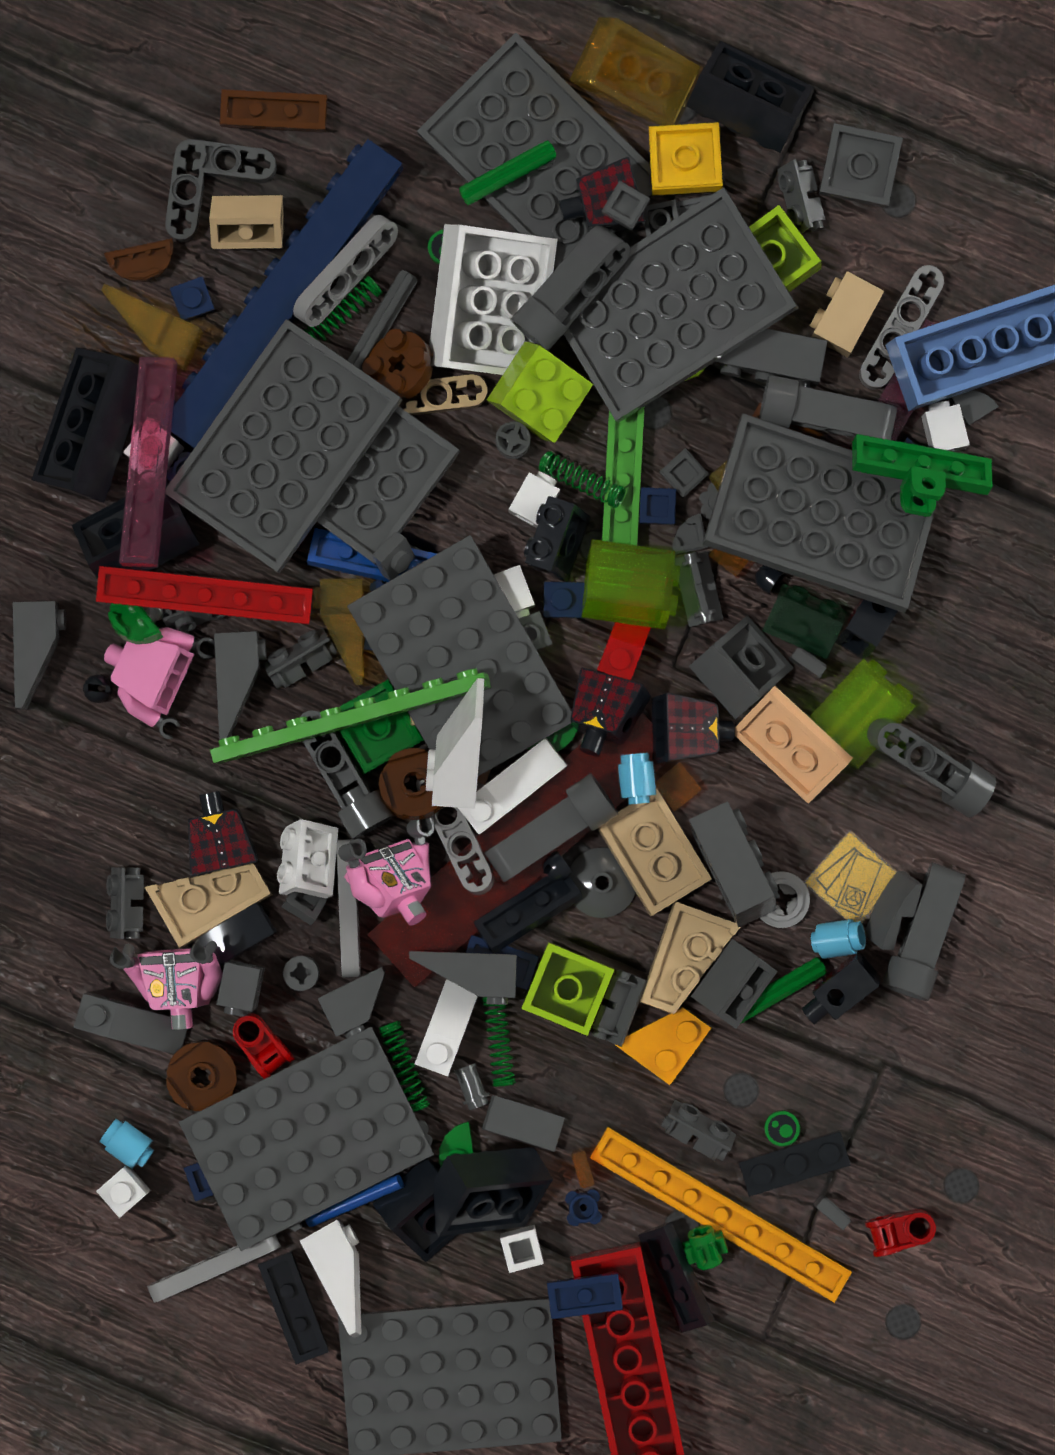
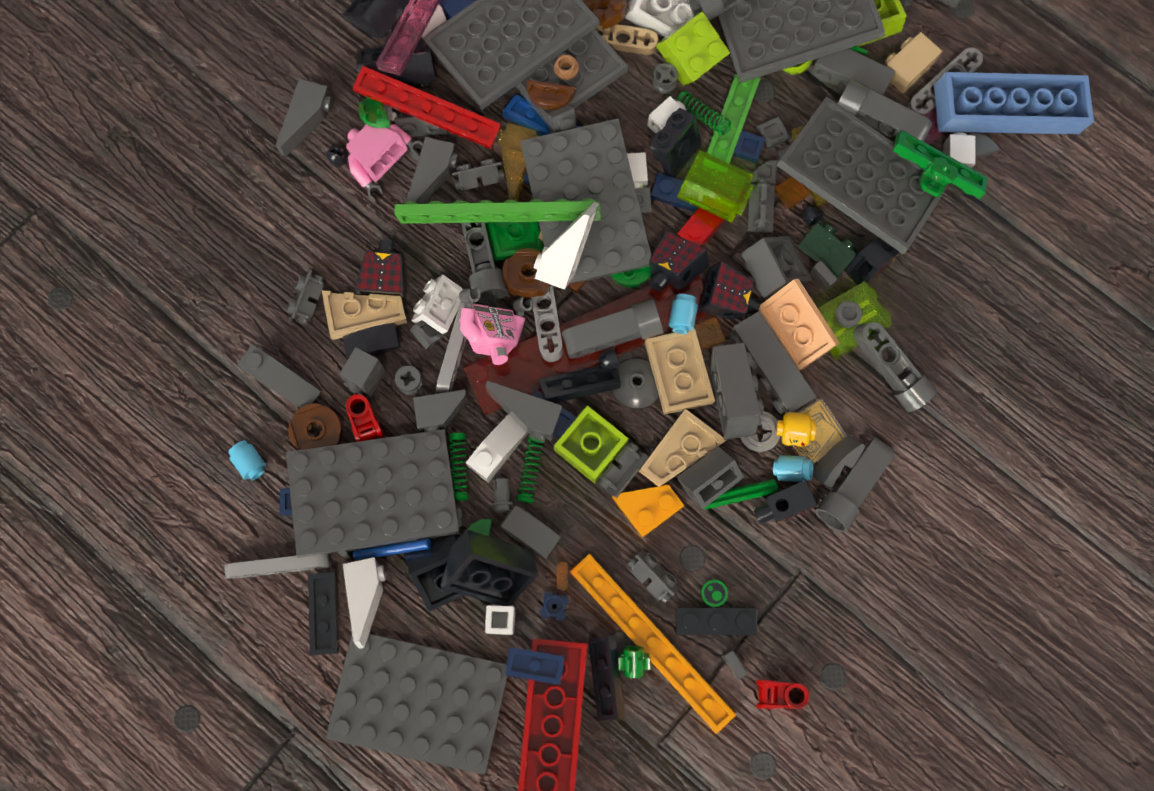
camera: 20 degrees right, 10 degrees down
(123, 1191) = (232, 491): white brick -> none
(173, 978) = (318, 354): torso -> none
(366, 528) = (549, 95): none -> reddish brown plate
(368, 472) = (563, 62): none -> medium nougat plate
(514, 785) = (594, 296): white slope -> none
(773, 806) = (773, 365): none -> dark grey brick
(827, 888) = (796, 429): none -> yellow head
(853, 713) = (848, 314): none -> dark grey tile

